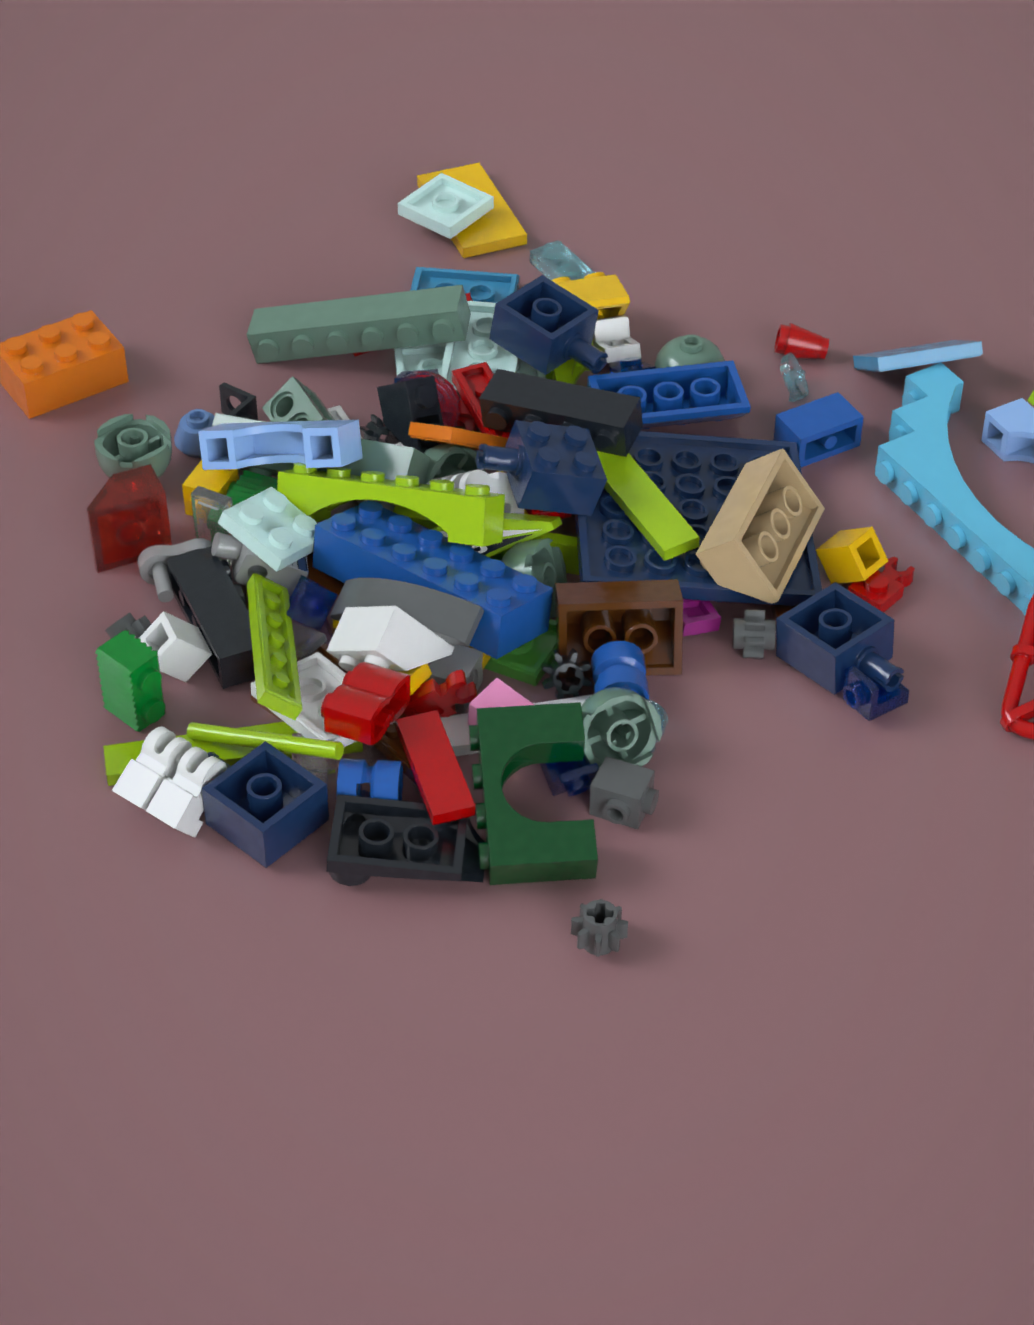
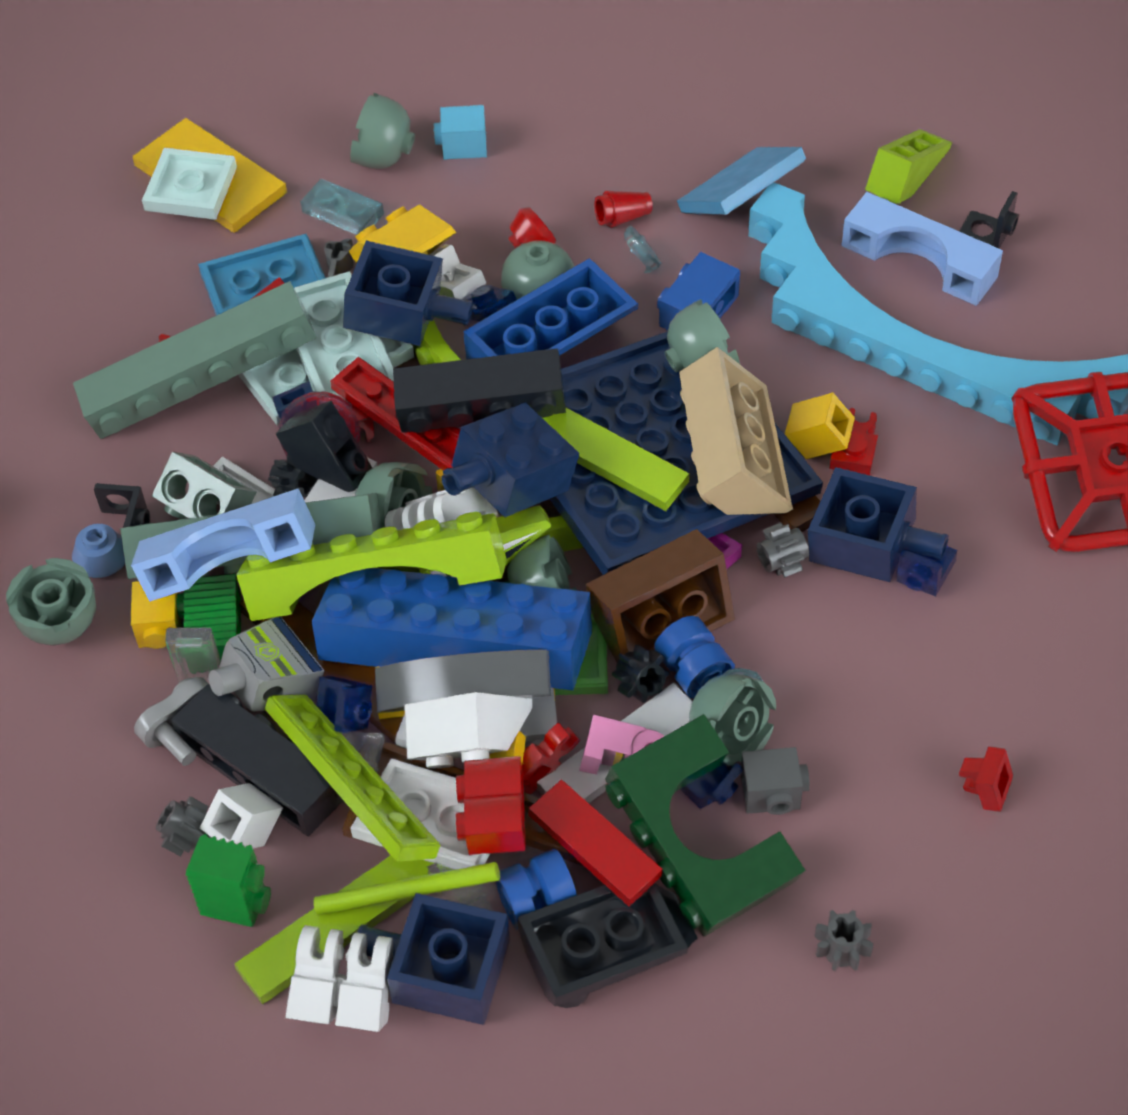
camera: 25 degrees left, 10 degrees up
(128, 518) = (104, 687): clear red slope -> none
(271, 528) = (265, 640): light aqua plate -> none
(454, 436) = (396, 458): orange tile -> none
(627, 219) = (382, 133): none -> sand green cylinder
(700, 244) = (461, 132): none -> medium azure brick
(707, 326) = (529, 227): none -> red cone
(775, 433) = (694, 334): none -> sand green cylinder
(815, 865) = (988, 777): none -> red tile

